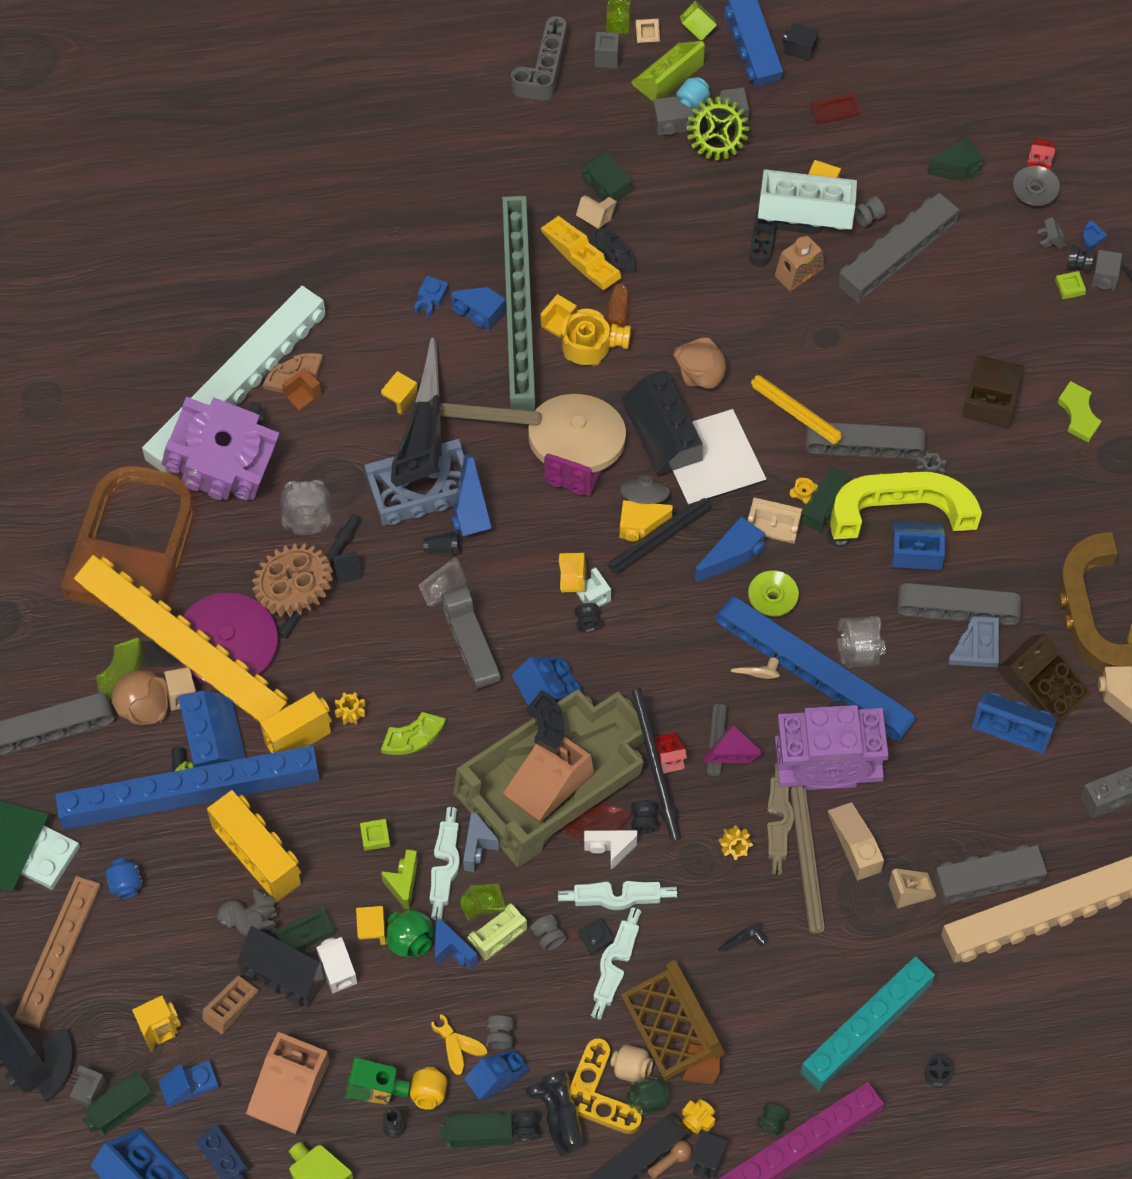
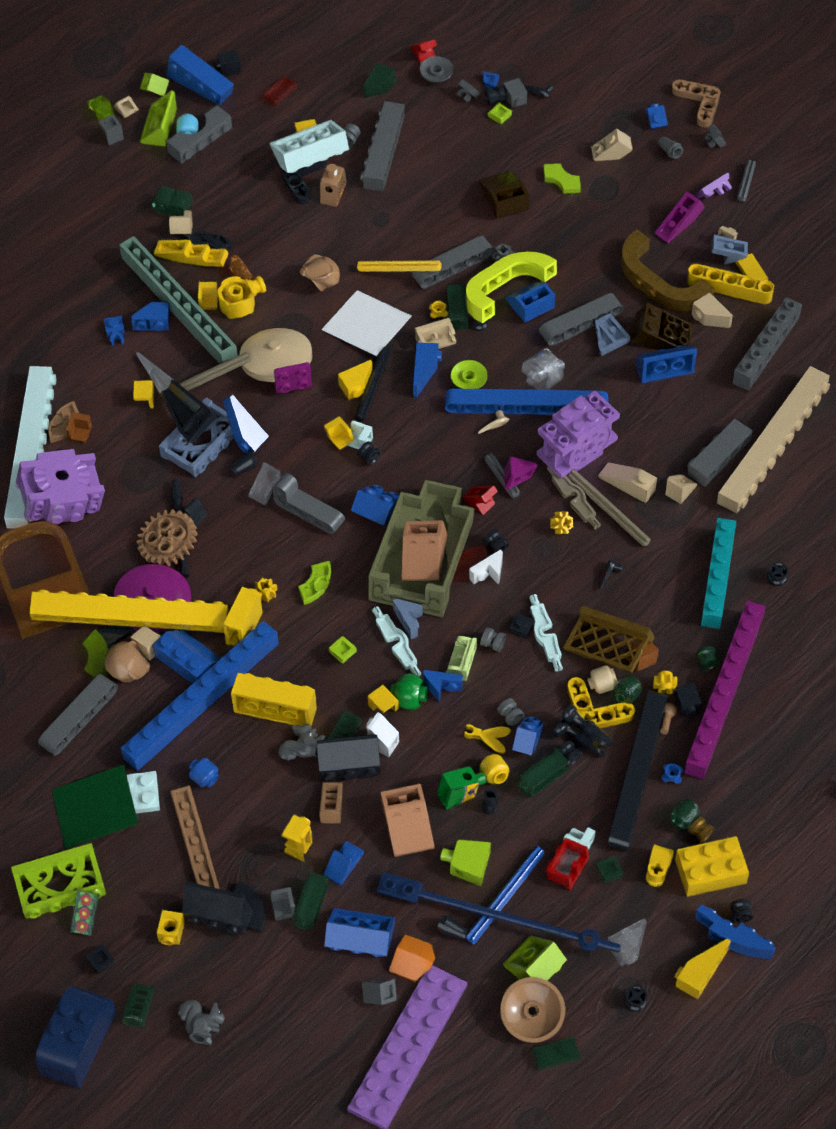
camera: 35 degrees left, 5 degrees down
(178, 759) = (179, 685): black arm -> none
(305, 507) = (141, 491): clear brick -> none
(402, 883) = (380, 666): lime slope -> none
(482, 899) = (436, 647): clear neon green bracket -> none
(541, 81) = (82, 169): dark grey beam -> none
(549, 722) = (403, 519): black tile -> none
(632, 894) = (506, 600): light aqua piece -> none
(644, 490) = (344, 362): dark grey dish -> none
(663, 423) = (324, 319): black slope -> none
(668, 812) = (507, 530): black bar -> none
(724, 137) = (233, 140): lime gear -> none

